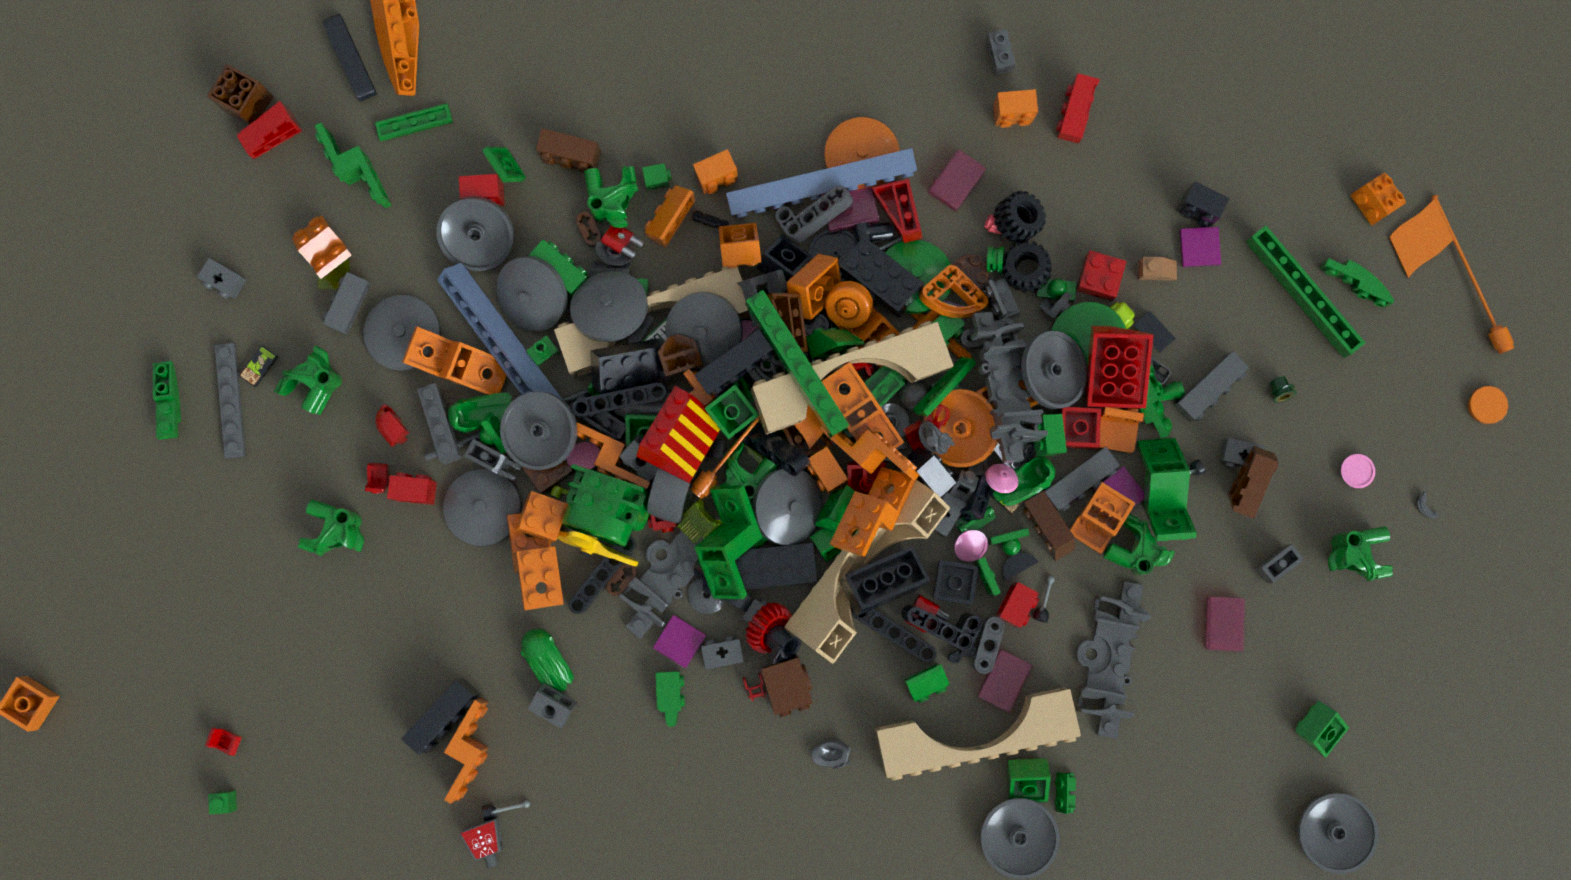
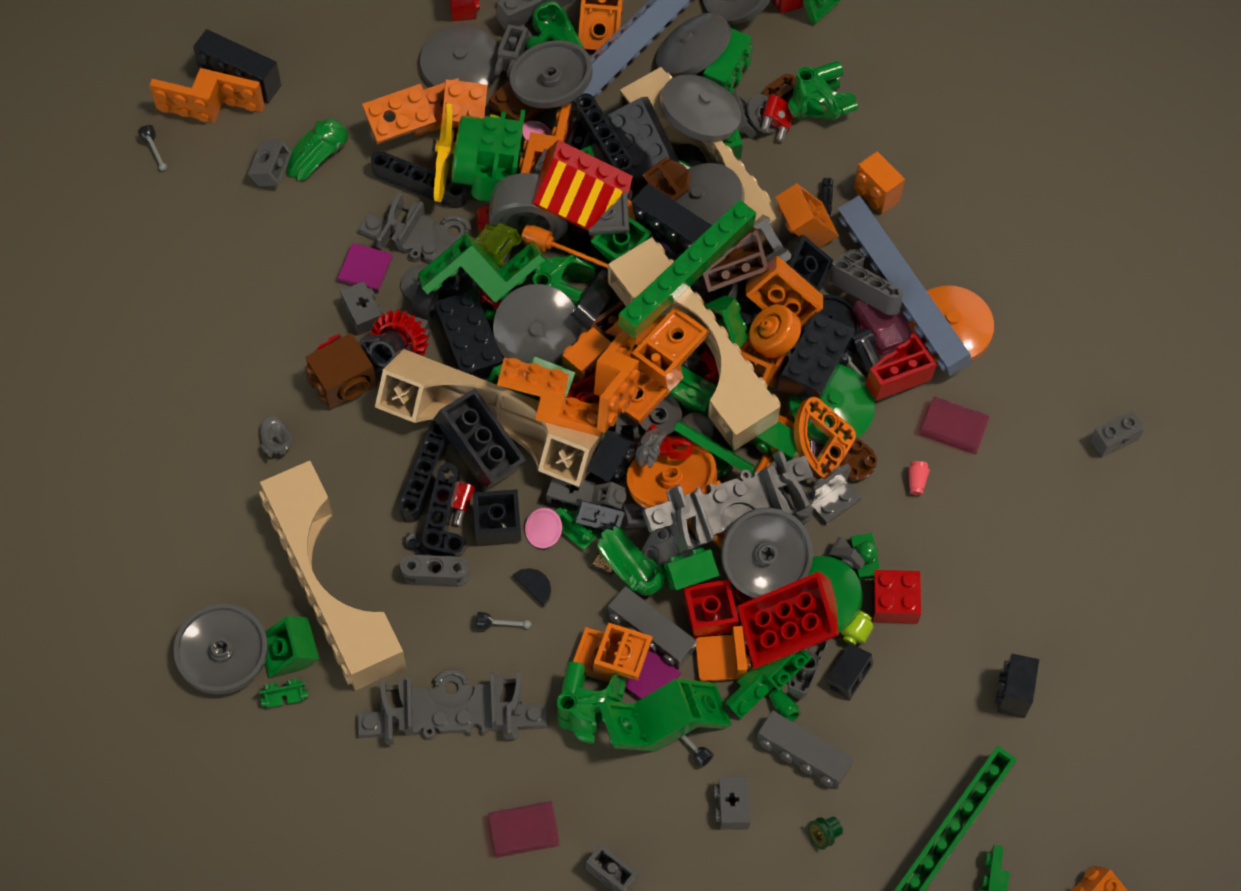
camera: 75 degrees right, 20 degrees down
(484, 841) = (117, 136): torso -> none
(542, 350) = (636, 66): green bracket -> none
(567, 151) = (853, 46): reddish brown brick -> none
(618, 576) = (417, 196): reddish brown beam -> none
(656, 176) = (856, 134): green brick -> none
(669, 215) = (817, 156): orange slope -> none
(669, 695) = (304, 268): green hinge -> none
(716, 413) = (614, 219): none -> dark grey tile
(926, 682) = (377, 511): green slope -> none
(987, 576) = (511, 546): green plate -> none
(995, 259) = (877, 479): green wheel -> none
(1001, 478) = (628, 538): bright pink piece -> none
(1005, 681) = (399, 597): clear pink piece -> none
(1010, 543) = (560, 567): green tile -> none
(1015, 108) = (1057, 459): orange brick -> none
(1017, 605) = (487, 585): red brick -> none
(1023, 252) = (875, 525): black tyre -> none
(1030, 212) = (950, 490): black tyre -> none
(1049, 525) = (585, 604): reddish brown wedge -> none
(1076, 108) = (1083, 527): red wedge -> none
(1157, 268) = (925, 658): medium nougat slope -> none
(1200, 247) = (968, 704): magenta tile -> none
(1252, 481) = (701, 811): reddish brown wedge -> none

